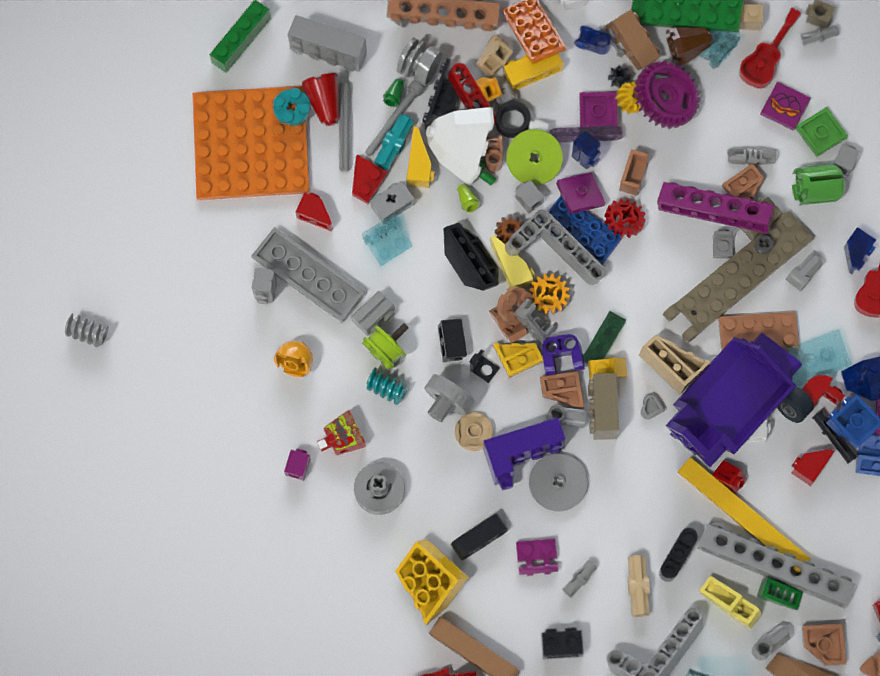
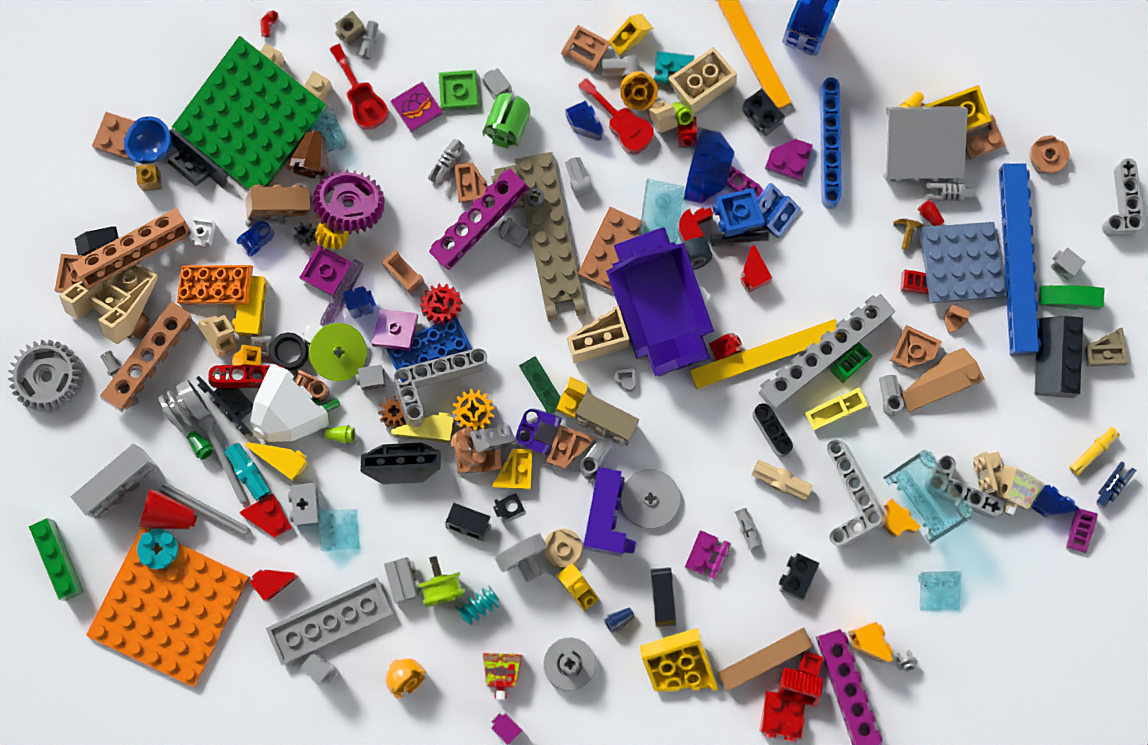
camera: 65 degrees left, 5 degrees up
(439, 510) = (619, 619): none -> dark blue cone
(447, 460) = (577, 587): none -> yellow slope

